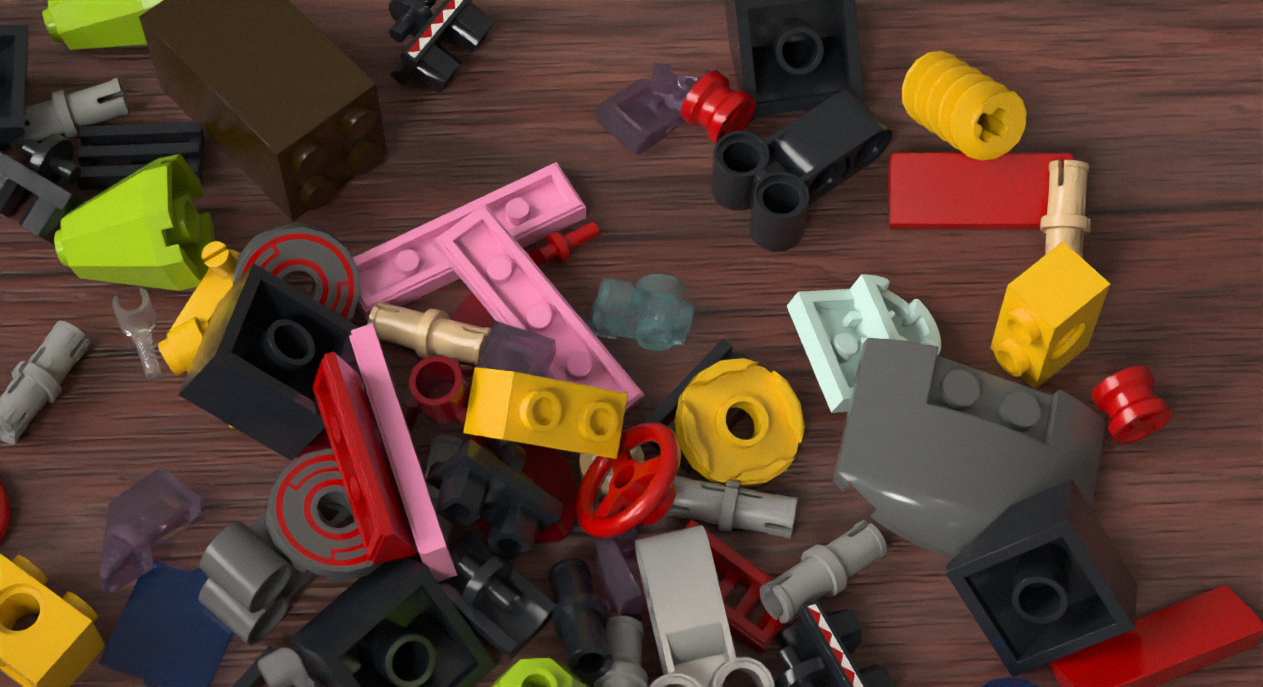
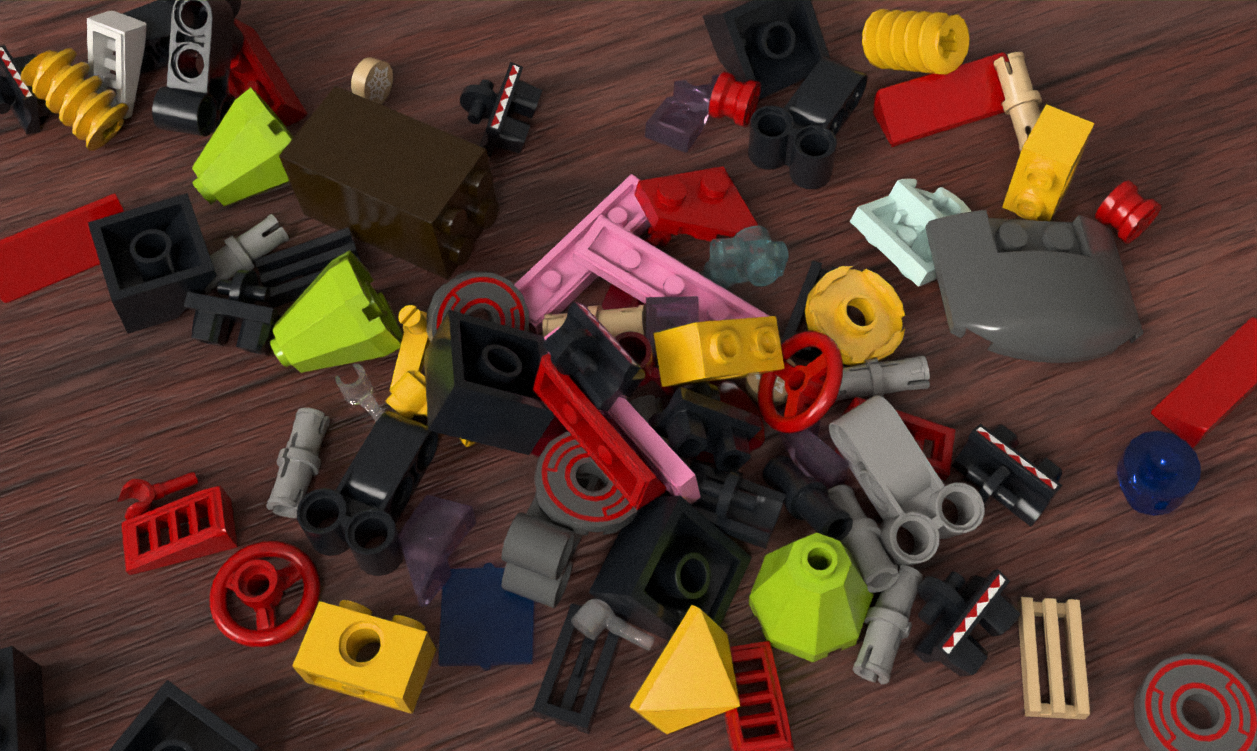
camera: 15 degrees left, 0 degrees up
(100, 446) = (372, 494): none -> black piece
(382, 375) = (593, 358): none -> black hips
(613, 224) = (694, 204): none -> red wing
(823, 571) = (967, 403): light grey pin -> none
(1045, 580) = (1138, 353): black slope -> none

